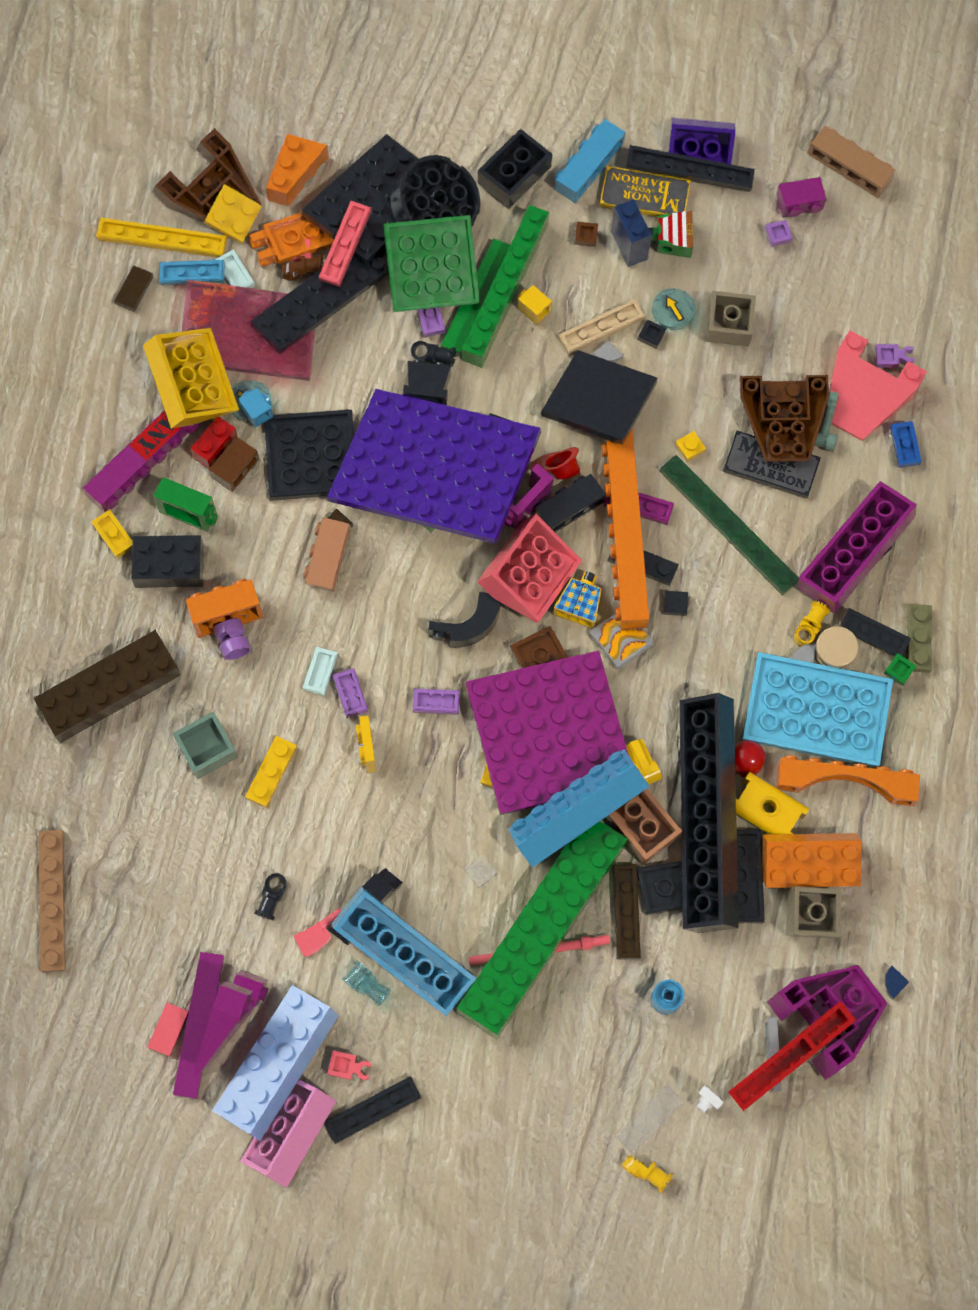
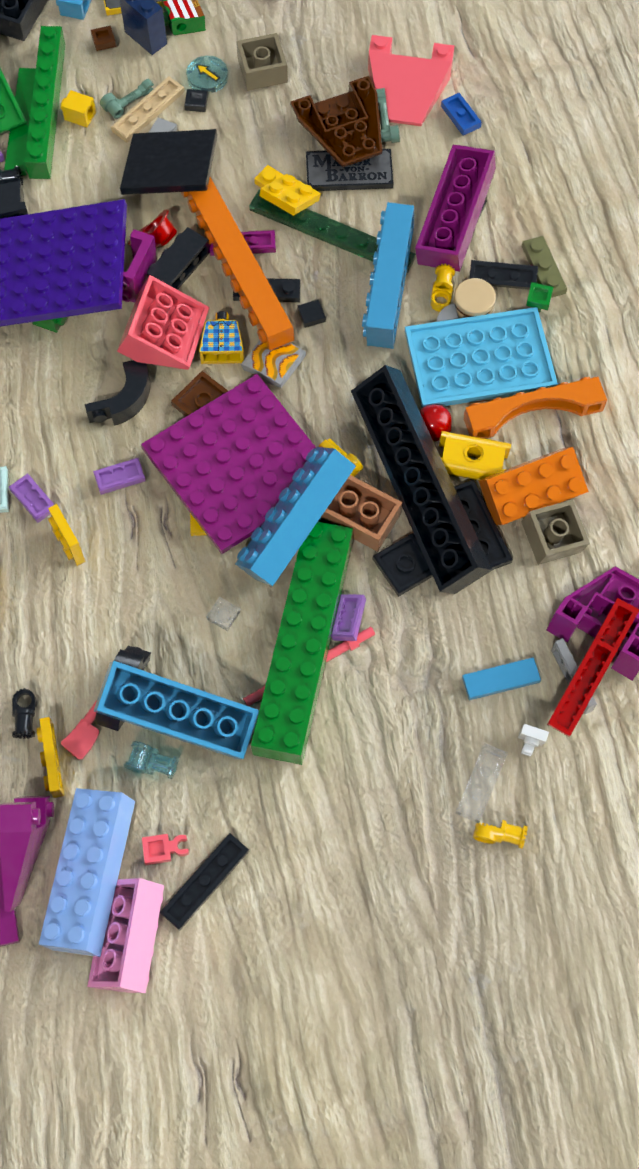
camera: 20 degrees left, 5 degrees down
(279, 946) = (50, 758): none -> yellow plate
(570, 312) = (115, 106): none -> sand green brick
(591, 919) = (348, 617): none -> medium lavender plate
(626, 911) = (379, 600): dark brown tile -> none
(667, 997) = (451, 660): dark azure wheel -> none
(702, 472) = (290, 194): none -> yellow plate
(707, 1030) = (501, 678): none -> dark azure tile
(763, 597) = (389, 275): none -> dark azure brick
(889, 356) = (417, 48): medium lavender plate -> none

